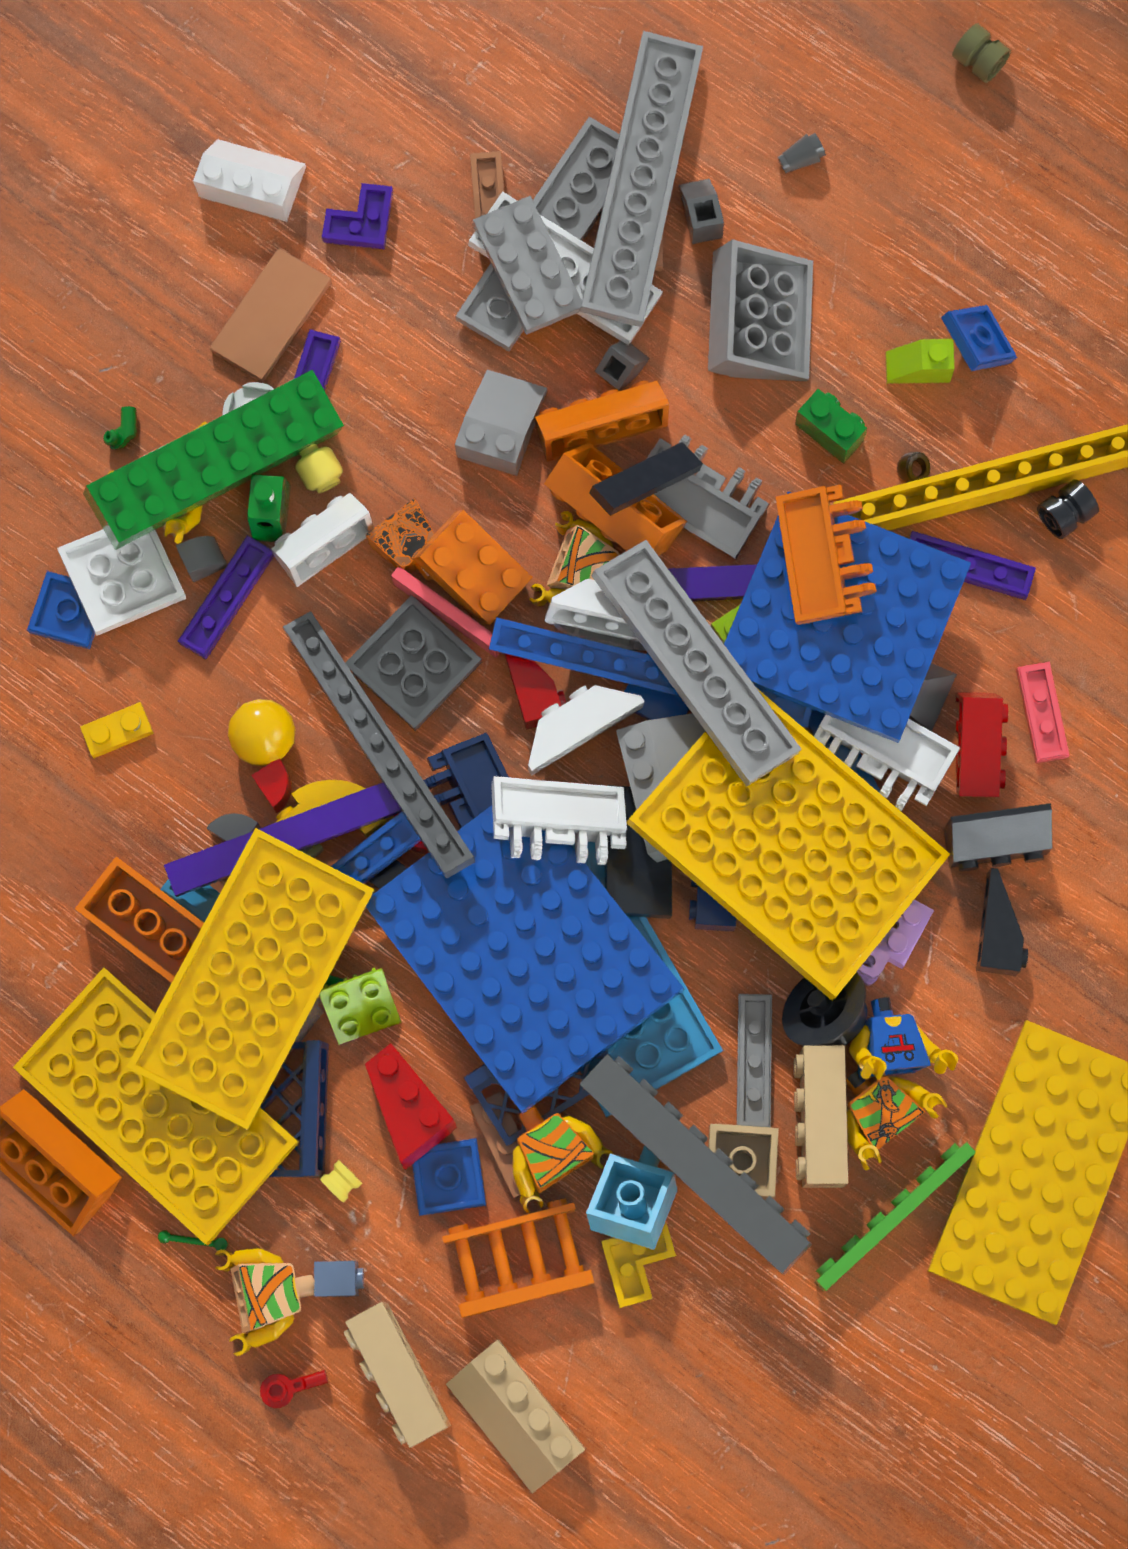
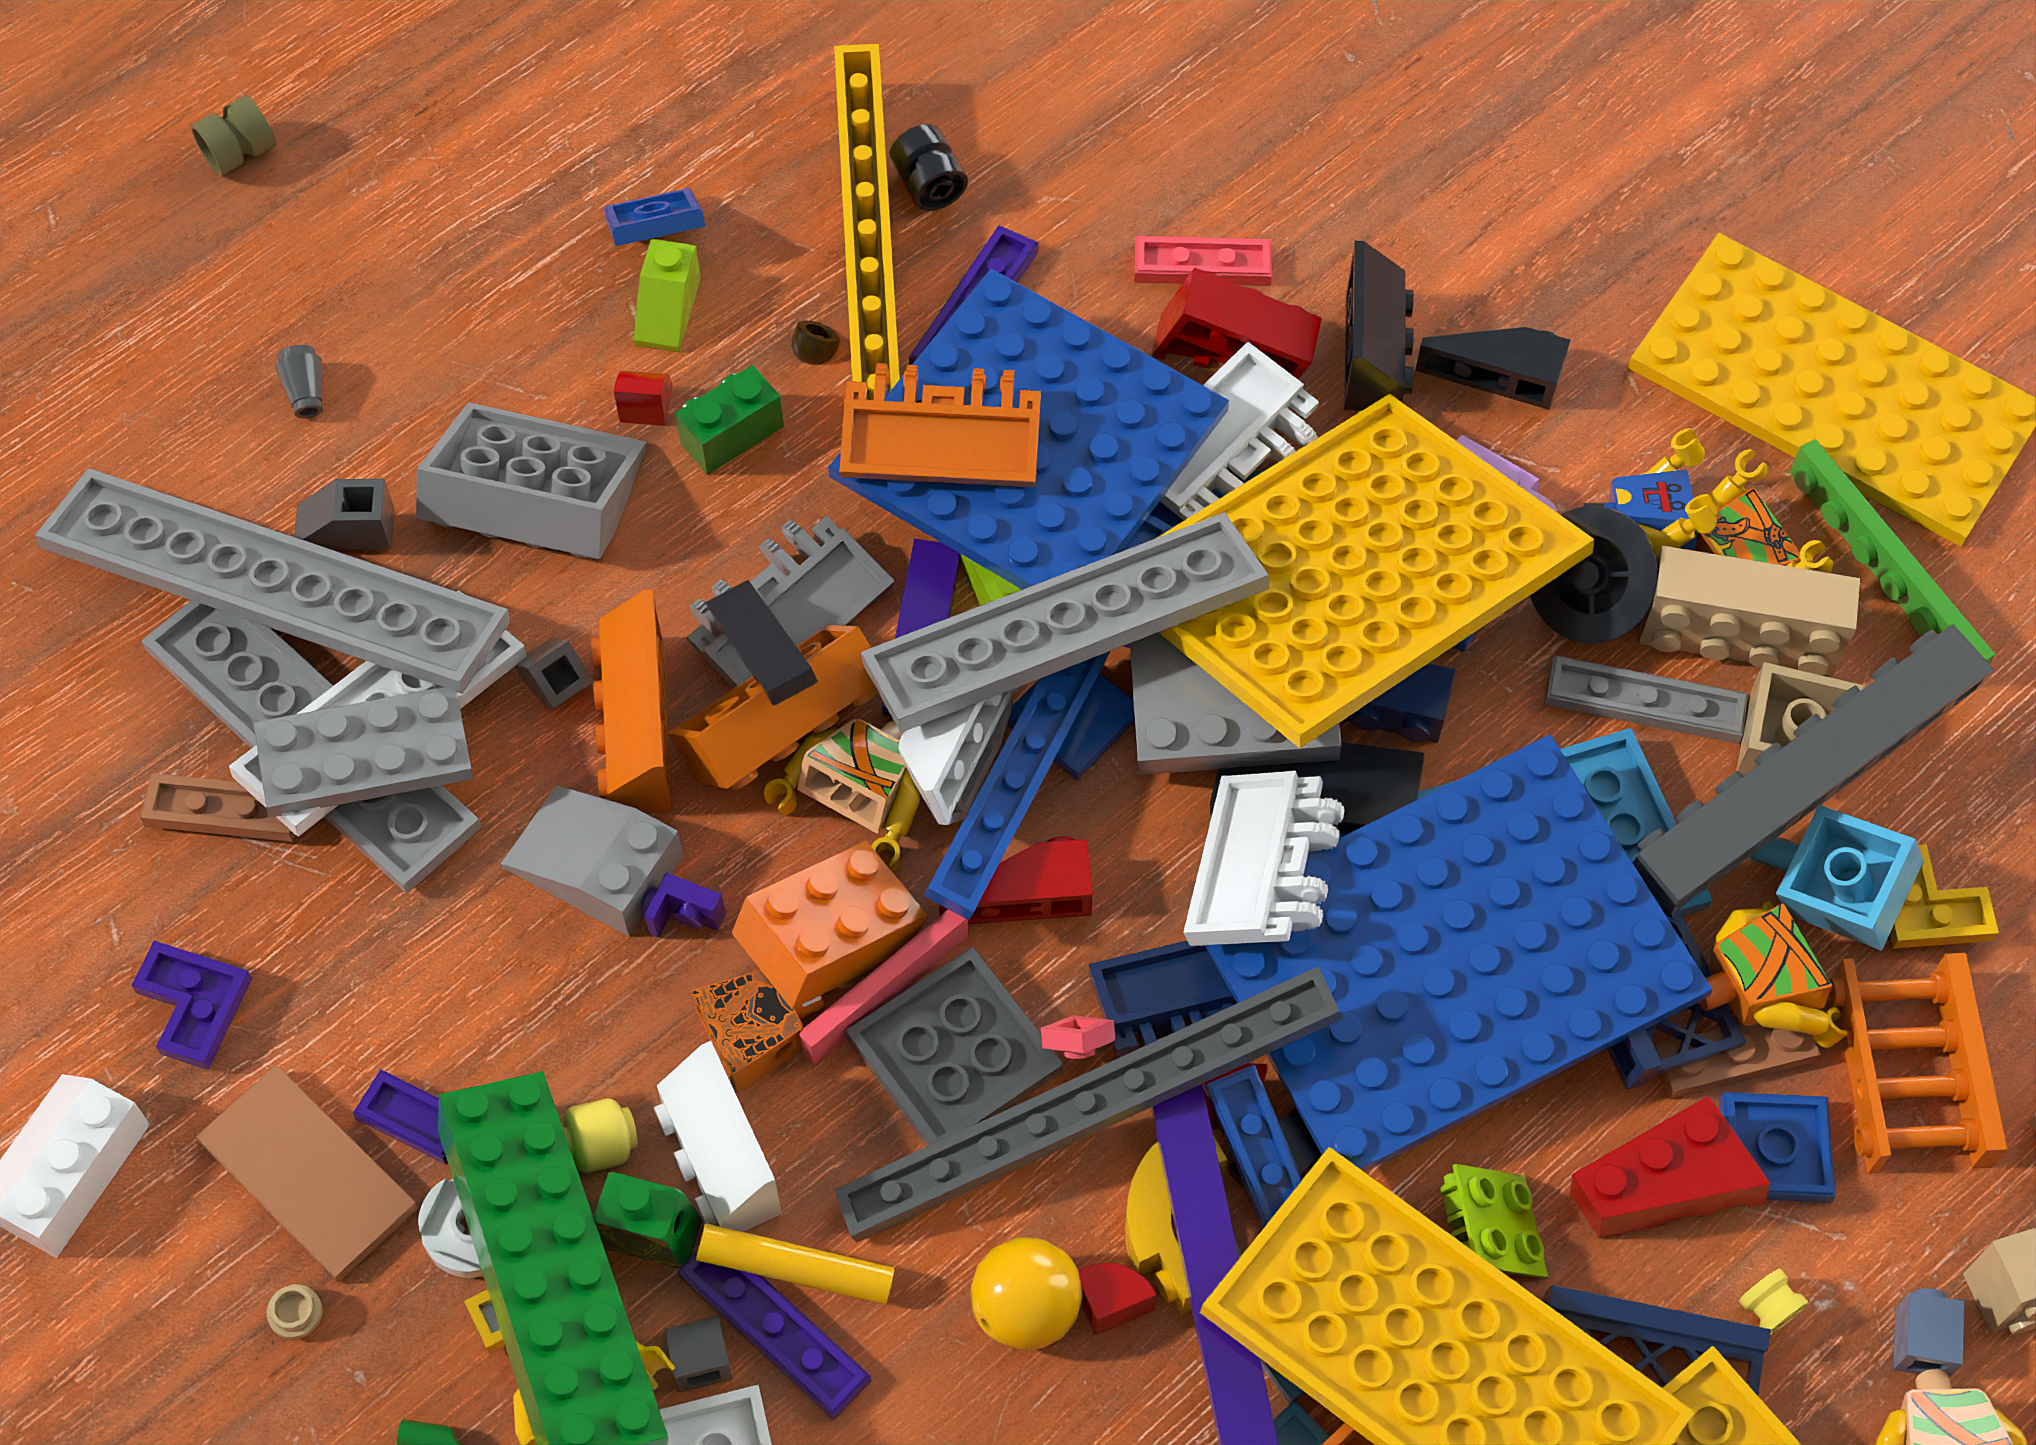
camera: 85 degrees left, 15 degrees down
(187, 332) = (294, 1311): none -> tan plate
(232, 826) = (1177, 1371): dark grey brick -> none
(260, 598) = (795, 1263): none -> yellow piece
(431, 732) = (1078, 1035): none -> coral plate
(476, 487) = (686, 900): none -> dark purple bracket
(578, 721) = (1117, 815): white wedge -> none
(840, 367) = (643, 397): none -> red brick

